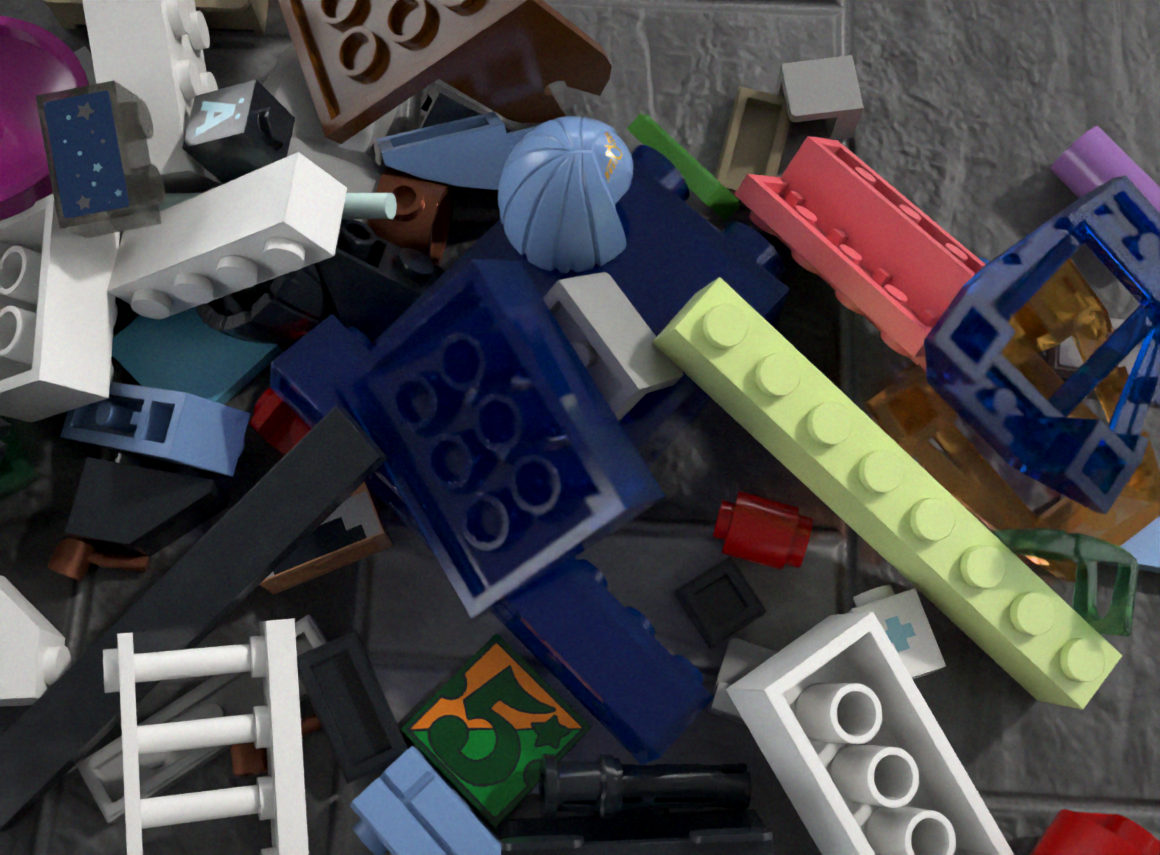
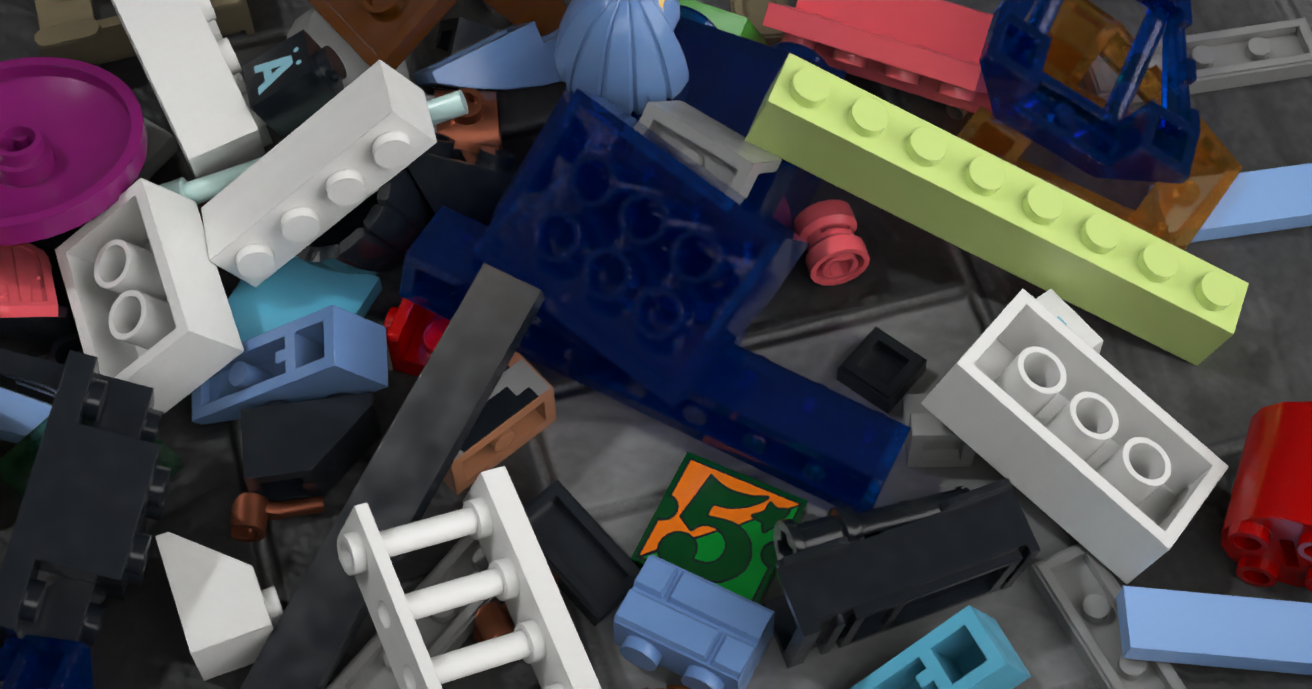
camera: 20 degrees left, 15 degrees down
(100, 159) = (182, 133): brick -> none
(718, 452) = (833, 248): none -> coral wheel
(763, 531) = (897, 294): red brick -> none
(1084, 552) = (1157, 208): clear green piece -> none

